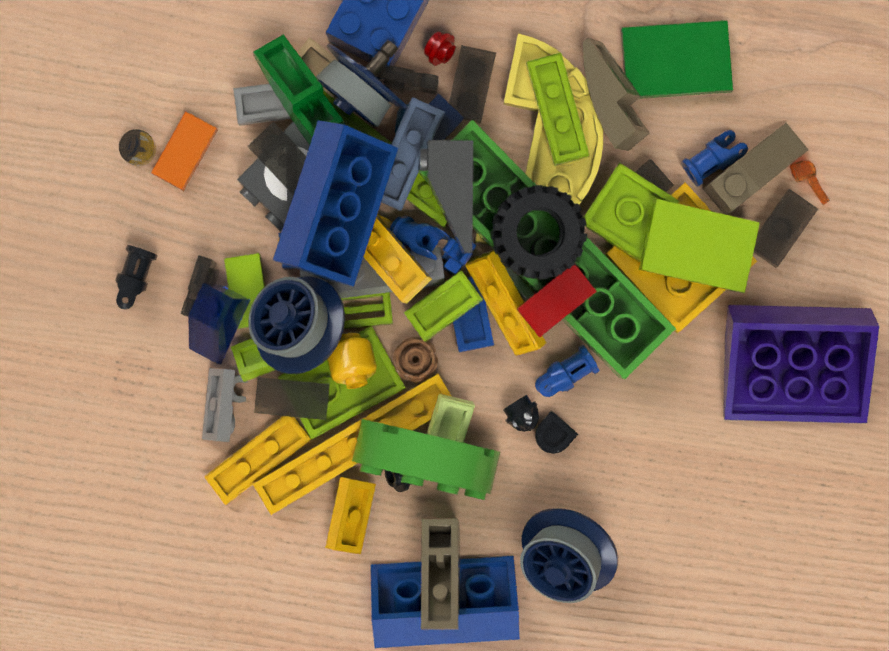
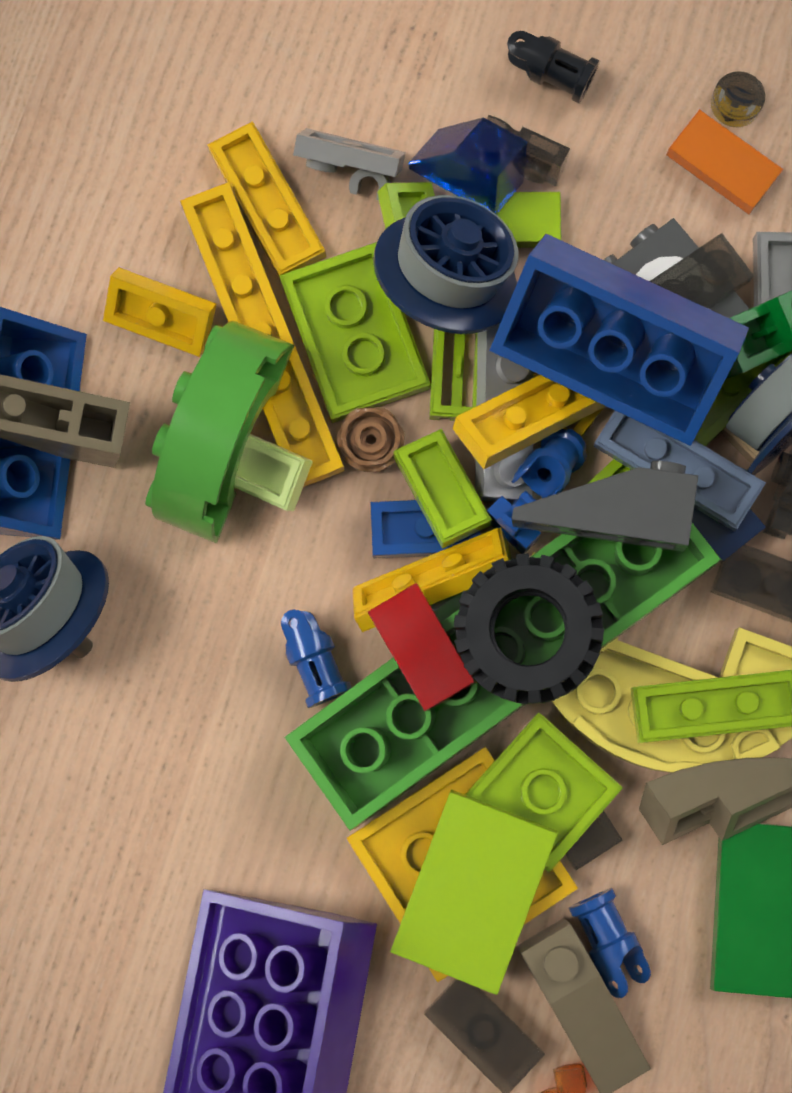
camera: 100 degrees right, 5 degrees down
(292, 398) = (341, 253): clear smoke tile -> none
(352, 361) = (381, 340): yellow head -> none
(522, 414) = (262, 582): black plate -> none
(554, 434) = (226, 626): black tile -> none

